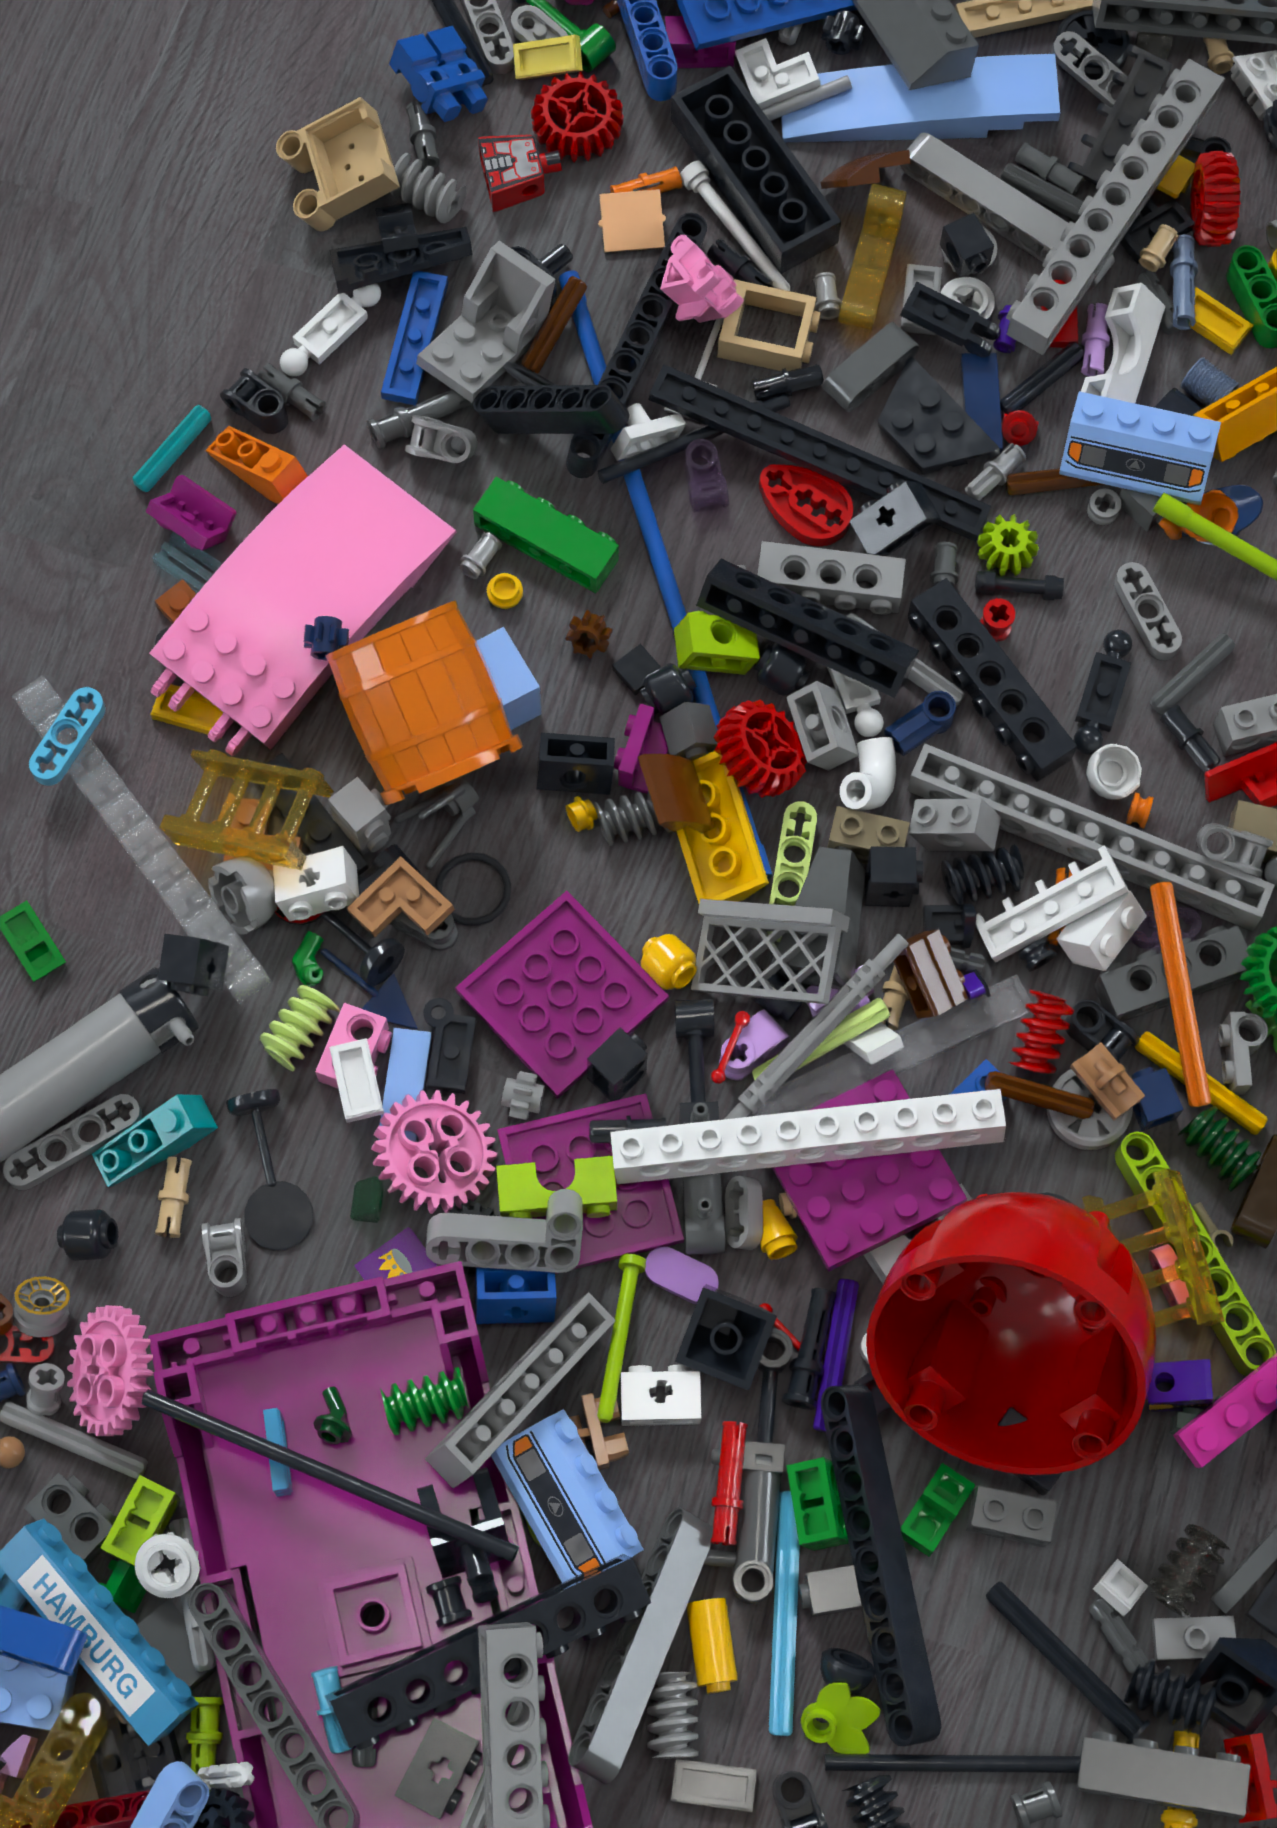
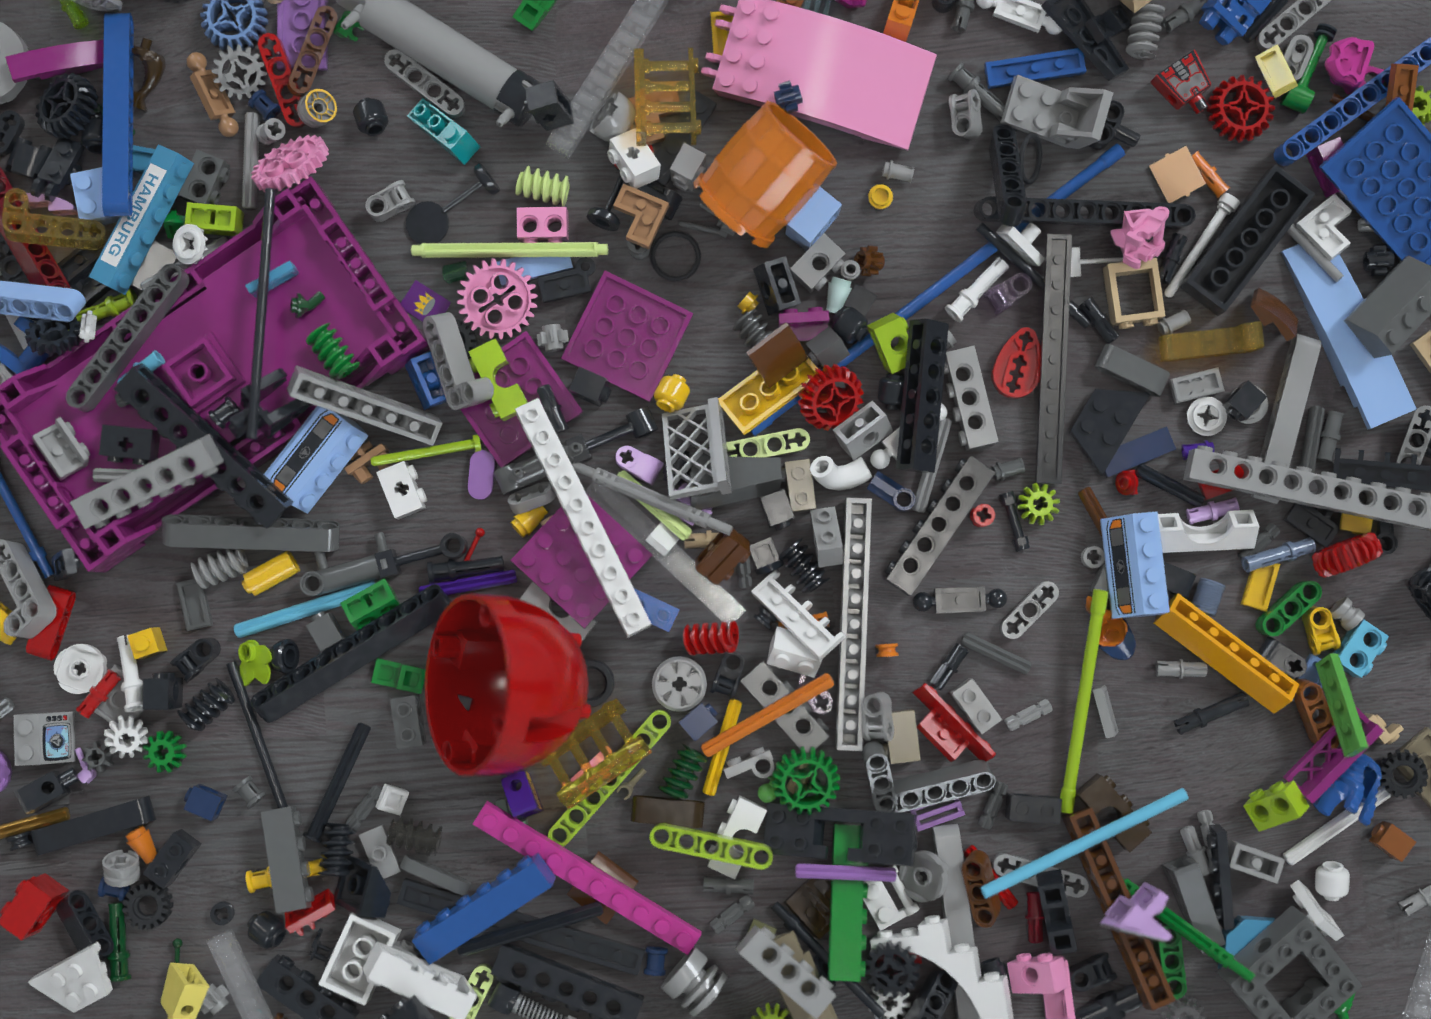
camera: 70 degrees right, 15 degrees up
(173, 1197) = (413, 157): tan pin -> none
(305, 962) = (588, 173): green arm -> none
(356, 1080) = (519, 234): white tile -> none
(361, 1130) = (471, 250): none -> yellowish green piece
(386, 1001) = (583, 231): dark blue piece -> none
(546, 534) = (928, 207): green brick -> none
(554, 324) = (1076, 153): reddish brown axle -> none
(562, 681) = (824, 250): none -> light grey brick
(593, 663) = (848, 265): none -> light grey pin
(616, 692) = (837, 294): none -> light aqua cone
(690, 528) = (969, 297): none -> white pin
(726, 1337) = (448, 514): black slope -> none
(727, 1499) = (360, 549): red pin -> none
(741, 1020) = (647, 451): red hinge -> none
(912, 517) = (1023, 424): brick -> none
(950, 320) = (1184, 408): black hinge -> none
(975, 985) = (728, 586): dark purple piece -> none
(996, 472) = (1088, 478): light grey axle -> none
(1040, 1095) = (667, 650): reddish brown axle -> none
(1107, 1081) = (692, 688): medium nougat hips -> none
(1114, 771) = (905, 625): white hair -> none
(1154, 255) = (1295, 529): tan pin -> none

